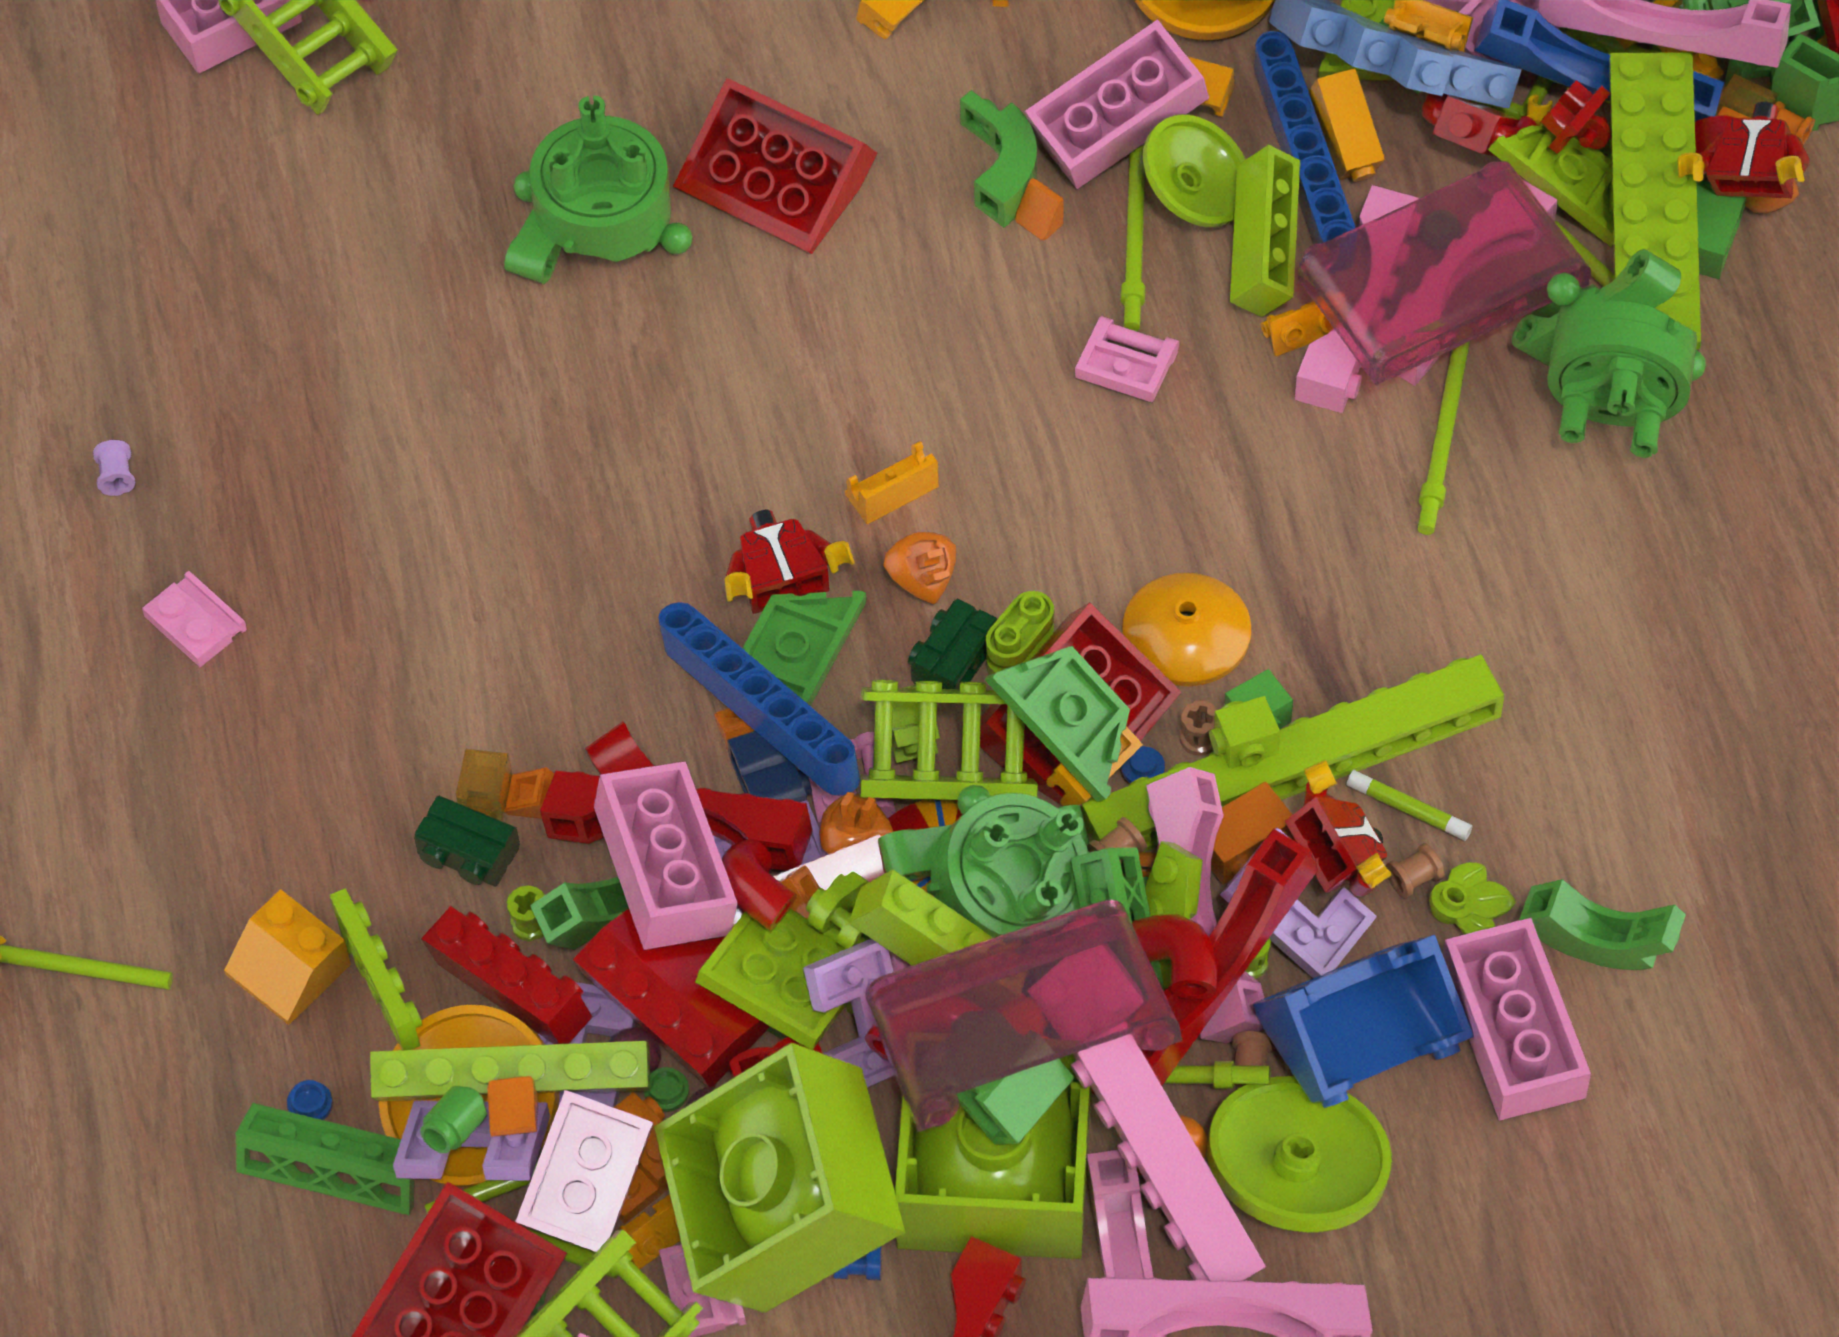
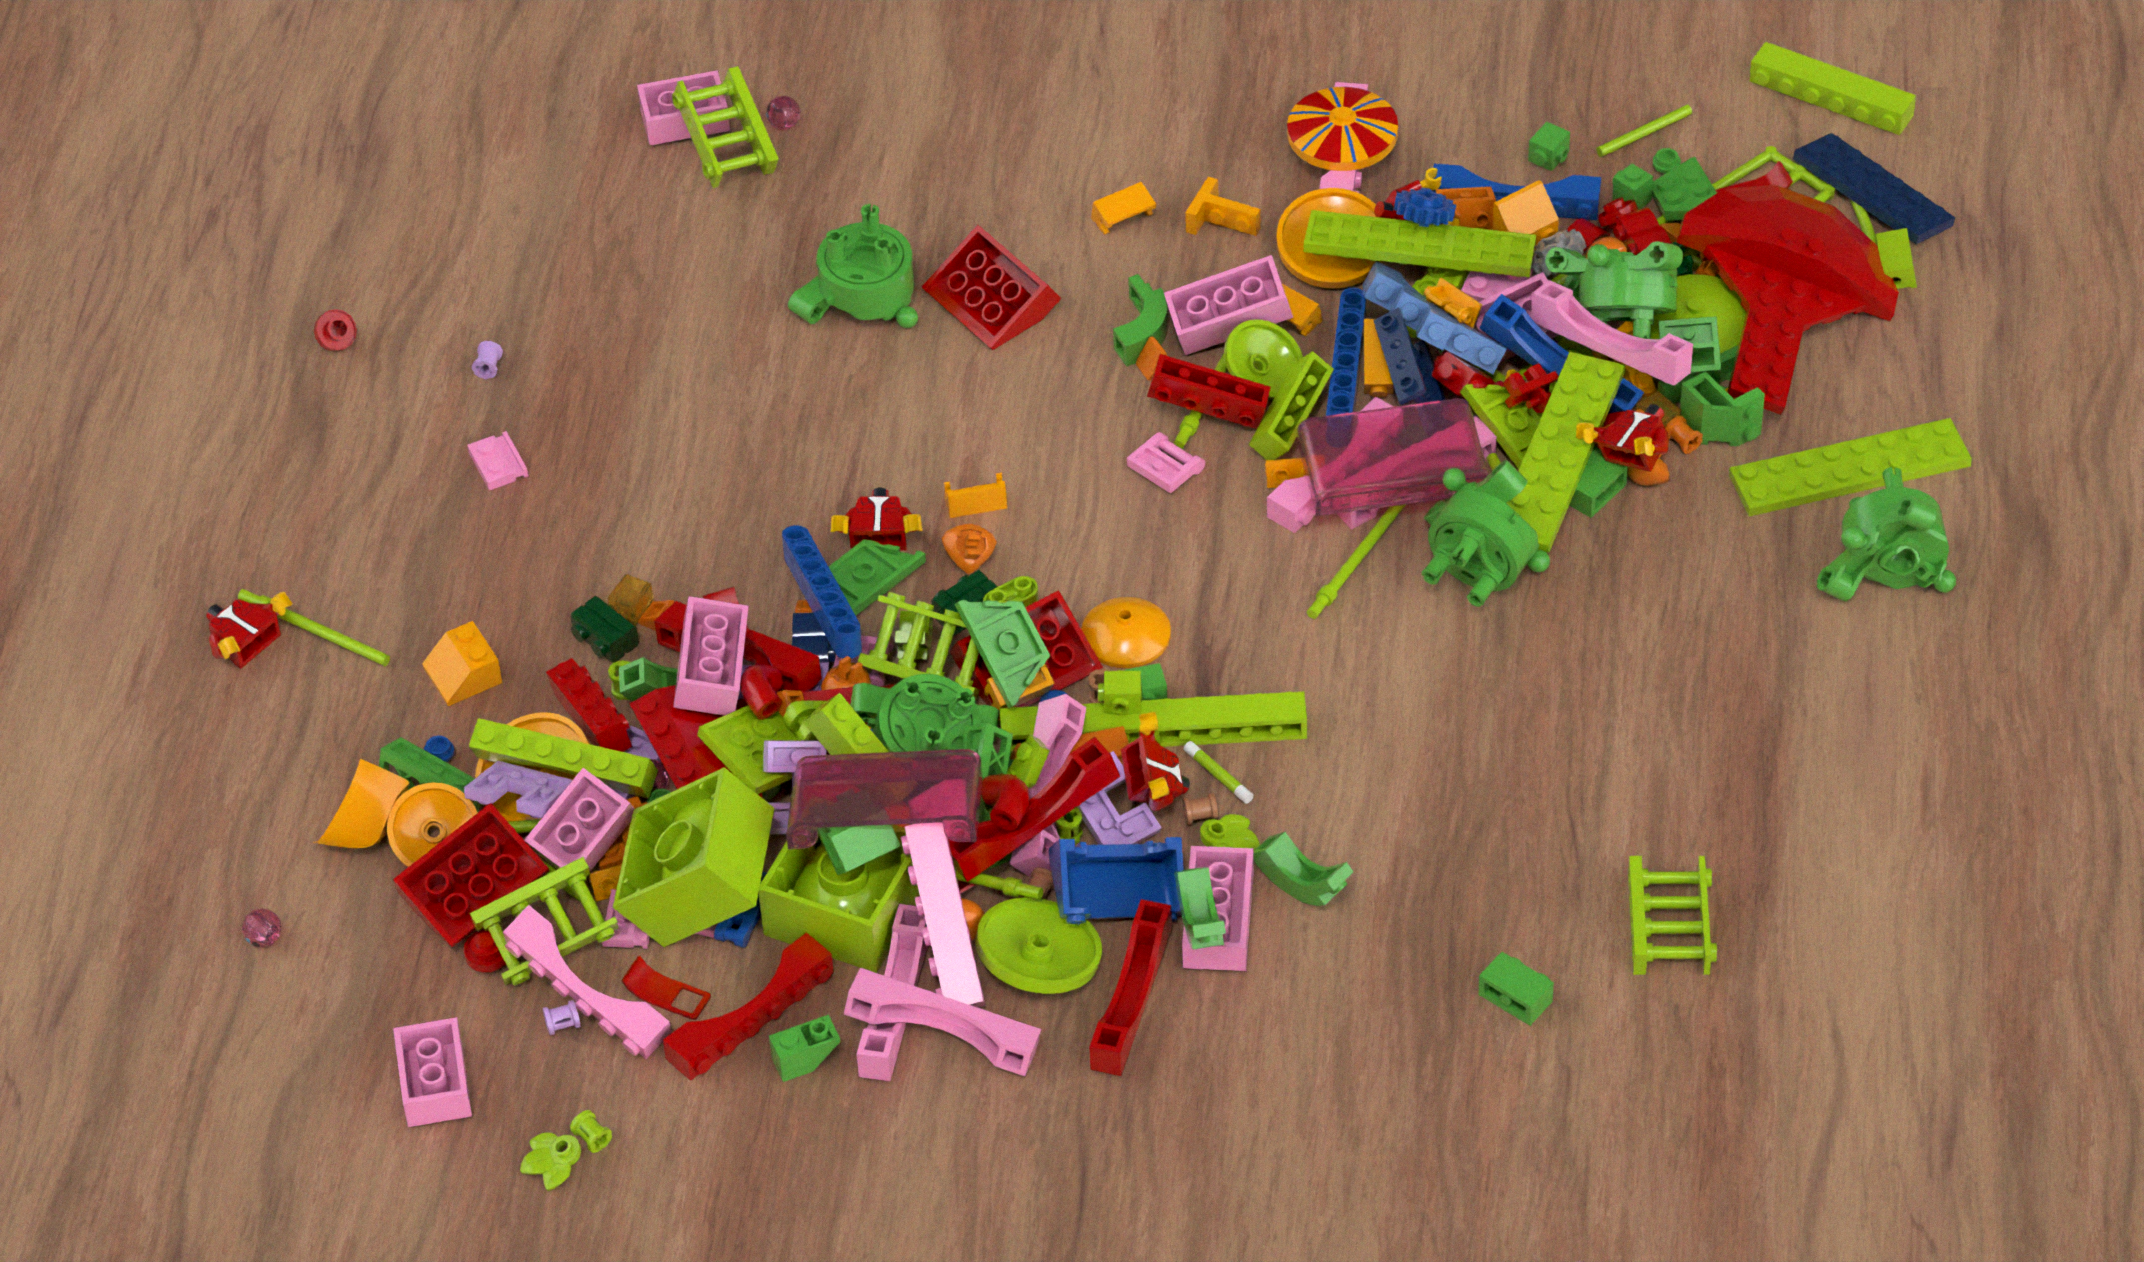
camera: 20 degrees right, 10 degrees down
(244, 1232) = (365, 808): none -> light orange piece
(352, 1198) = (420, 810): none -> light orange dish
(368, 957) = (507, 669): lime wing -> none
(453, 1119) = (511, 769): bright green brick -> none
(512, 1106) = (551, 773): orange slope -> none
(1123, 836) = (1014, 728): nougat bush -> none
(1149, 241) = (1208, 391): none -> red brick
(1400, 125) = (1408, 363): none -> dark blue fence
(1453, 1193) = (1144, 953): none -> red arch
(1512, 1042) = (1198, 908): none -> bright green arch

